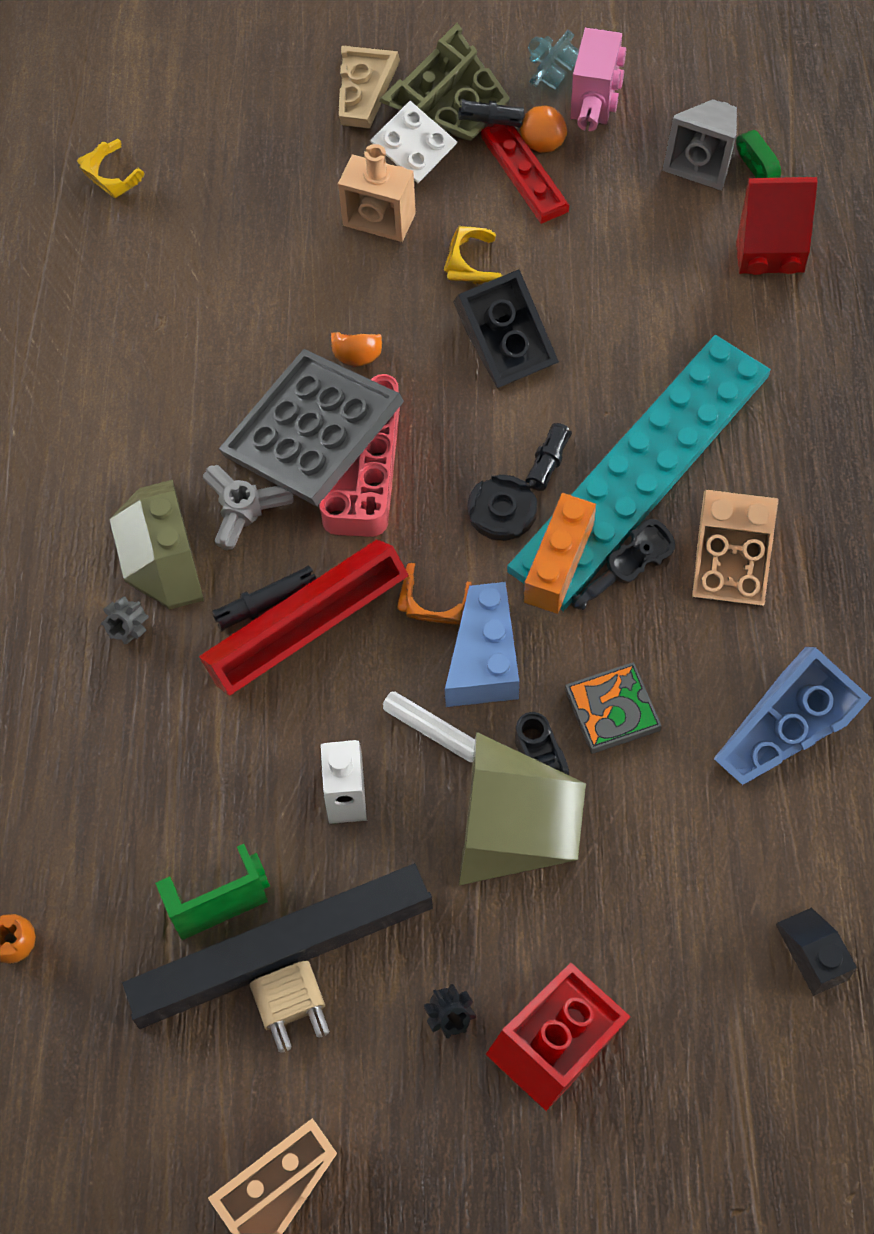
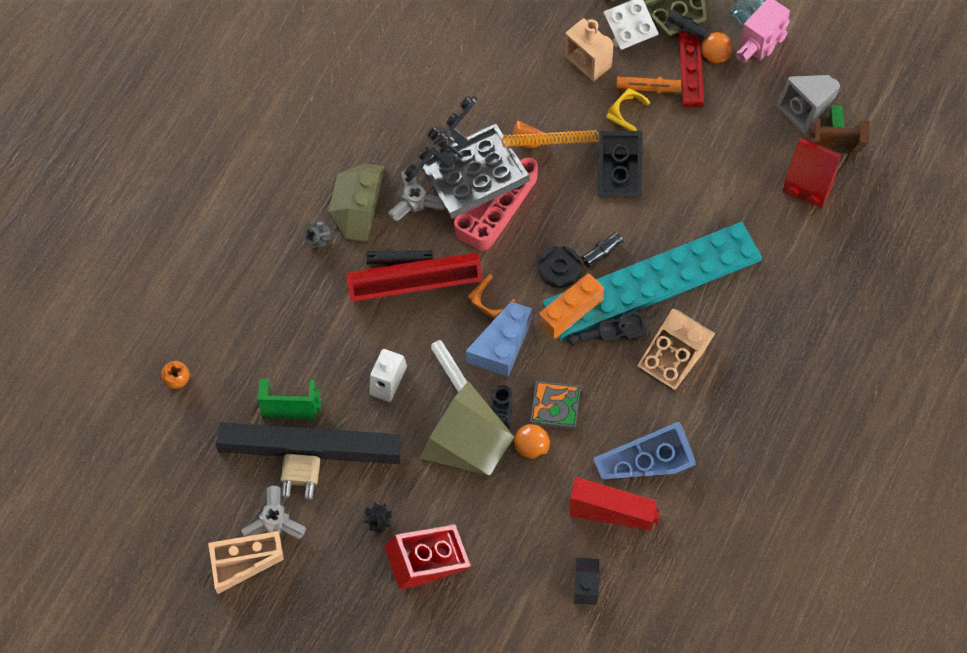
camera: 25 degrees right, 0 degrees up
(245, 400) = (441, 139): none -> black piece
(280, 1080) = (275, 510): none -> light grey bush
(430, 319) = (550, 137): none -> light orange piece
(517, 199) = (674, 85): none -> orange pin
(610, 778) = (531, 441): none -> orange hair
(786, 818) = (611, 505): none -> red slope
(797, 159) = (852, 138): none -> reddish brown fence

